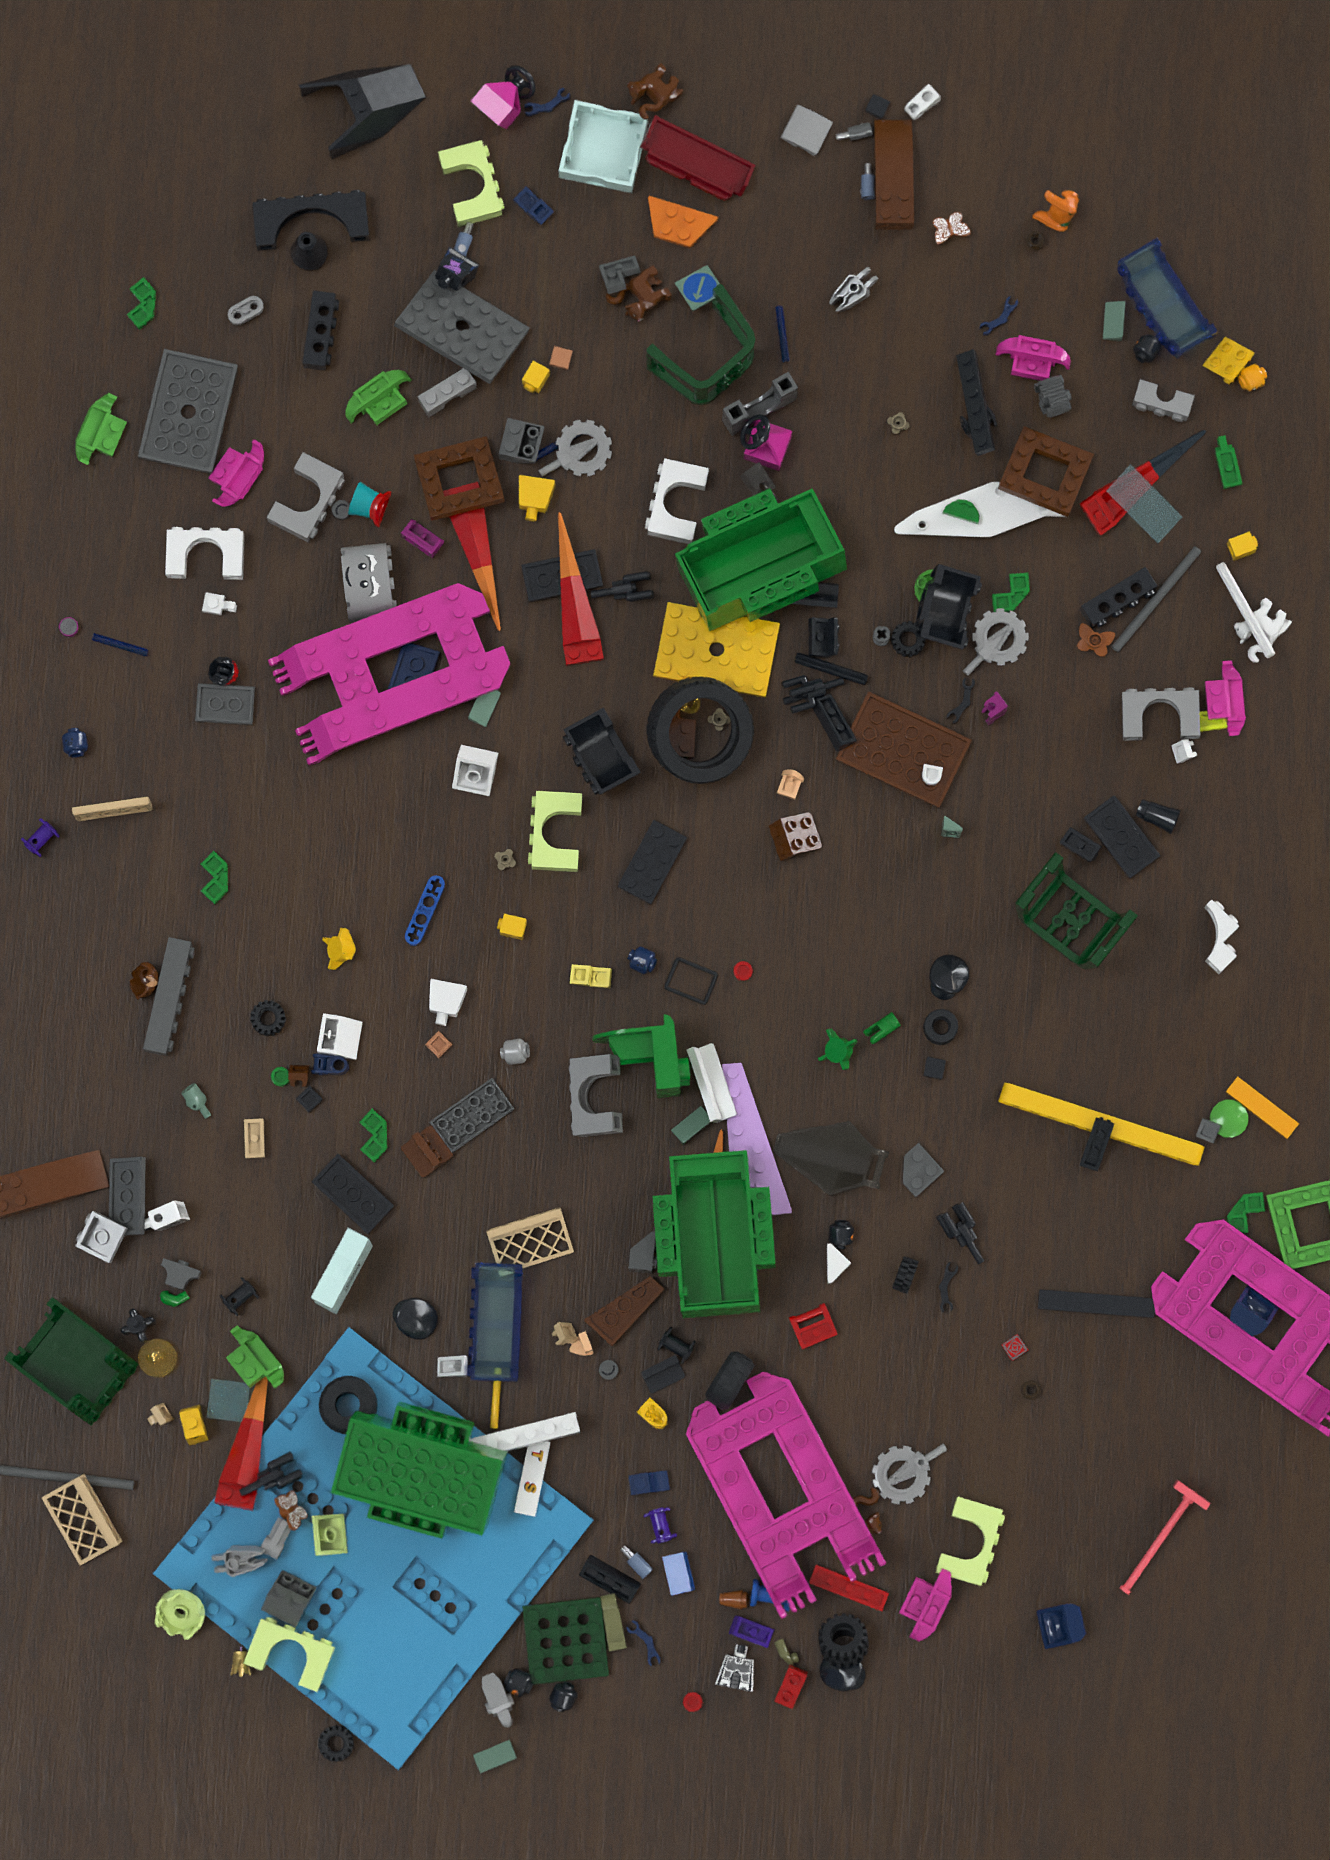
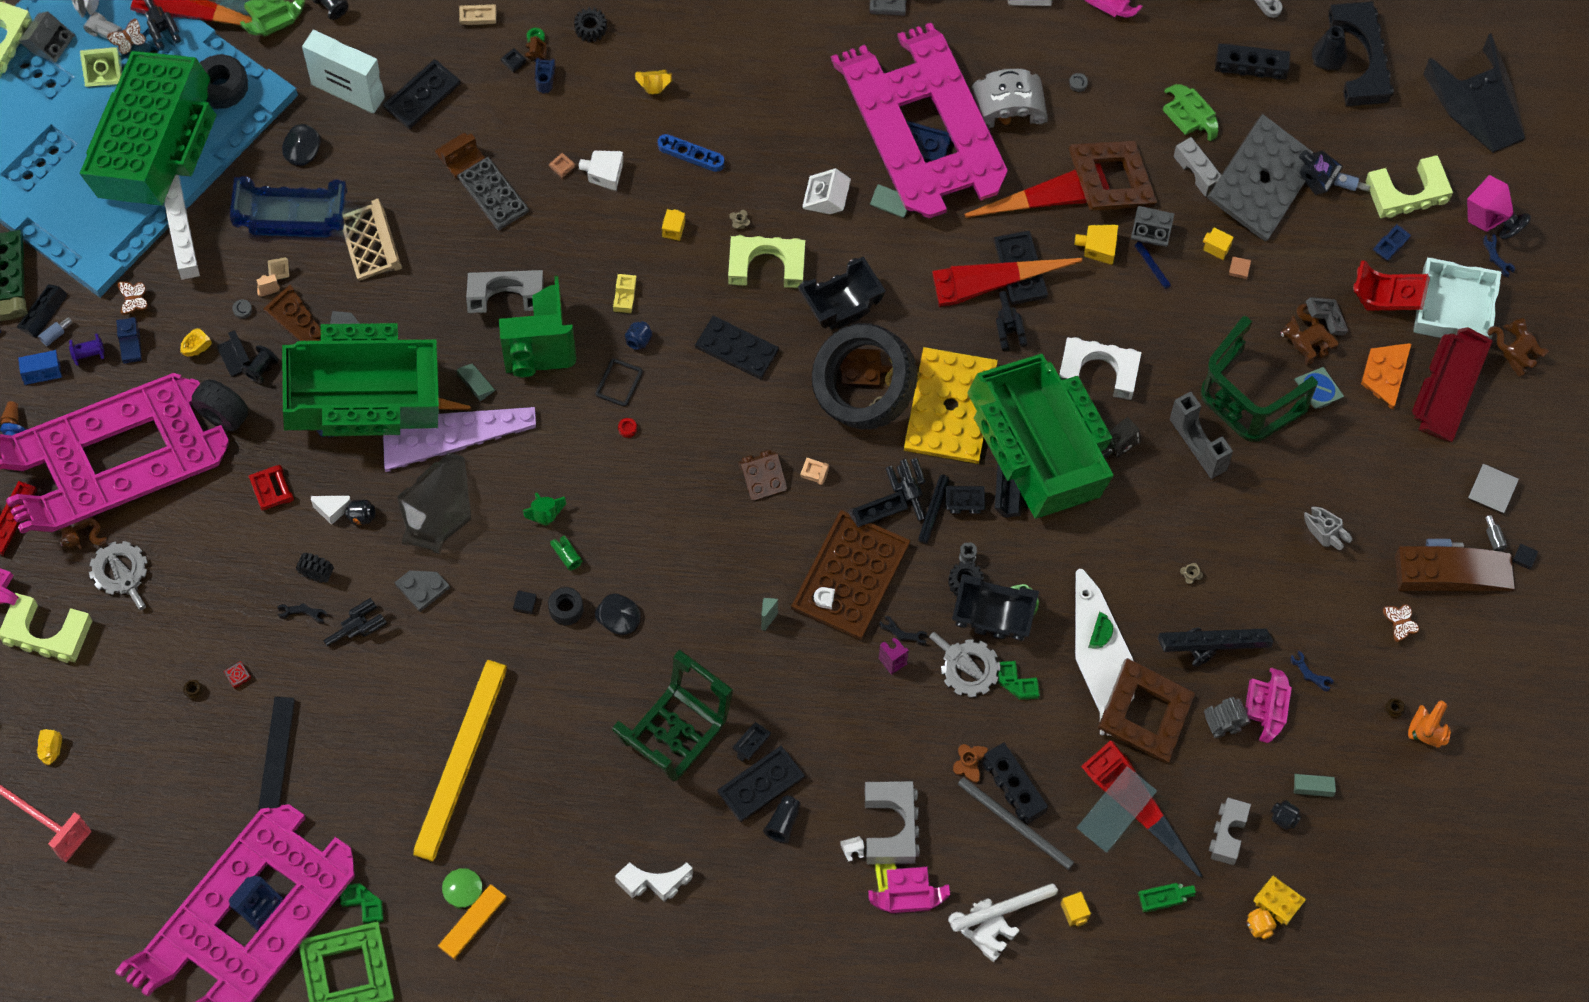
camera: 90 degrees right, 15 degrees down
(305, 523) = (1102, 69): light grey arch -> none
(339, 1036) = (570, 78): white slope -> none
(369, 503) = (1084, 98): hat -> none
(378, 1142) = (483, 116): green tile -> none
(422, 538) = (1053, 148): magenta hinge -> none
(452, 1366) = (256, 173): white slope -> none
(495, 1404) = (211, 213): yellow bar -> none
(515, 1051) = (552, 226): light grey head -> none
(532, 1478) = (140, 238): white sticker -> none
(569, 456) = (1141, 274): light grey bar -> none
(594, 208) = (1389, 291): none -> red bracket
(599, 1482) = (133, 297): none -> animal
(712, 1083) = (514, 394): white panel -> none
(766, 442) = (1162, 443): dark pink piece -> none
(782, 333) = (1278, 466): clear blue bar -> none
(922, 102) = (1534, 597): white leg -> none
(1093, 1527) = (49, 746): none -> yellow rock
(1096, 1143) = (439, 751): black hinge -> none
(1163, 300) = (1341, 830): windscreen -> none
(1208, 1130) = (449, 865): dark grey tile -> none

